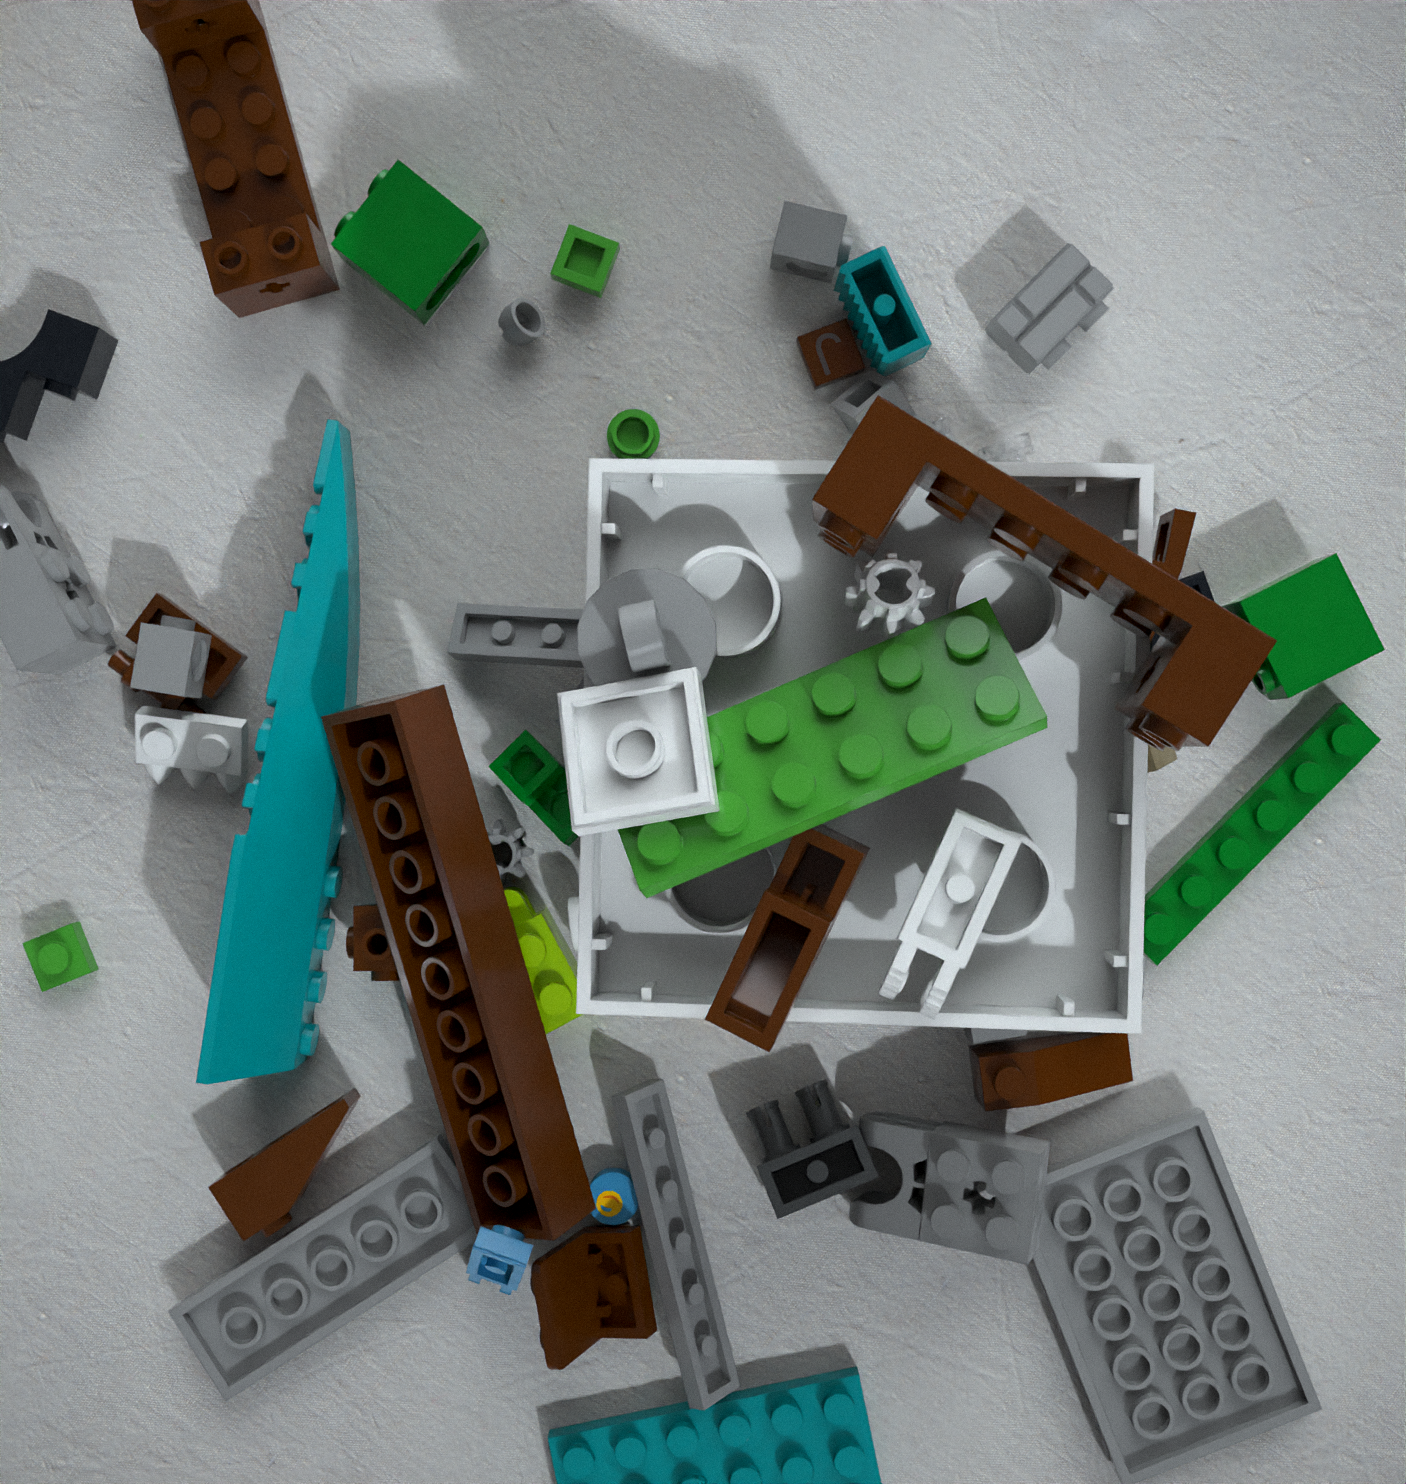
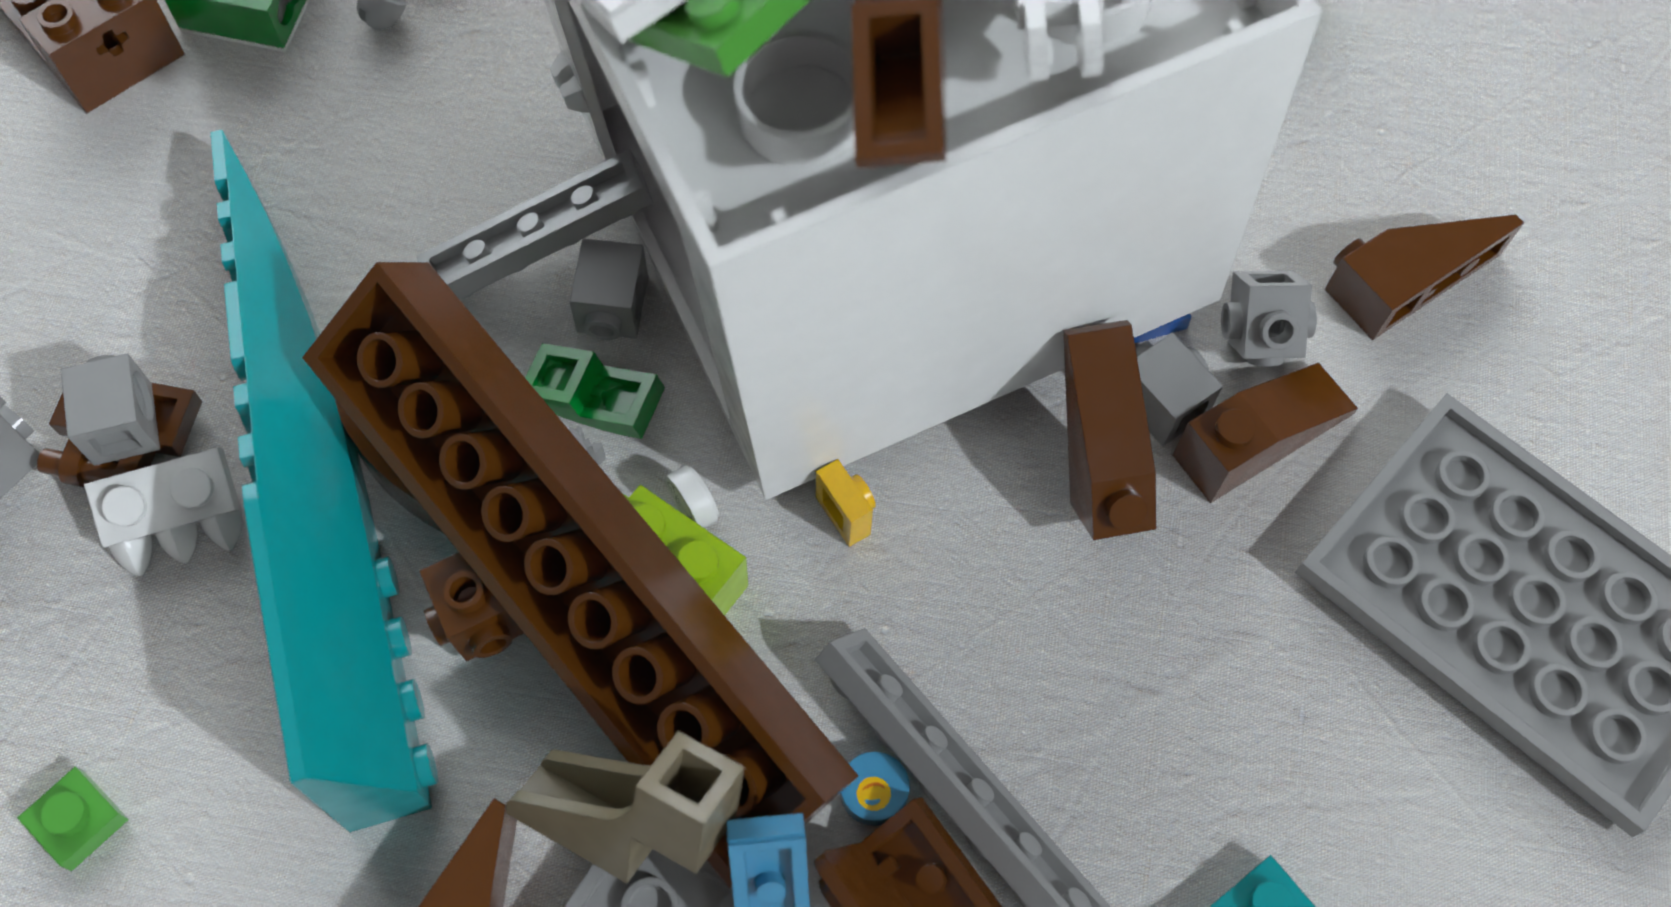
camera: 25 degrees left, 25 degrees down
(424, 1166) = (624, 810): none -> dark tan arch
(633, 435) = (532, 52): bright green plate -> none
(818, 1171) = (1083, 632): dark grey brick -> none
(901, 1067) = (1108, 432): none -> reddish brown slope
(940, 1181) = (1234, 593): light grey brick -> none
(1236, 994) = (1413, 265): none -> reddish brown slope
(1253, 828) = (1312, 144): green plate -> none

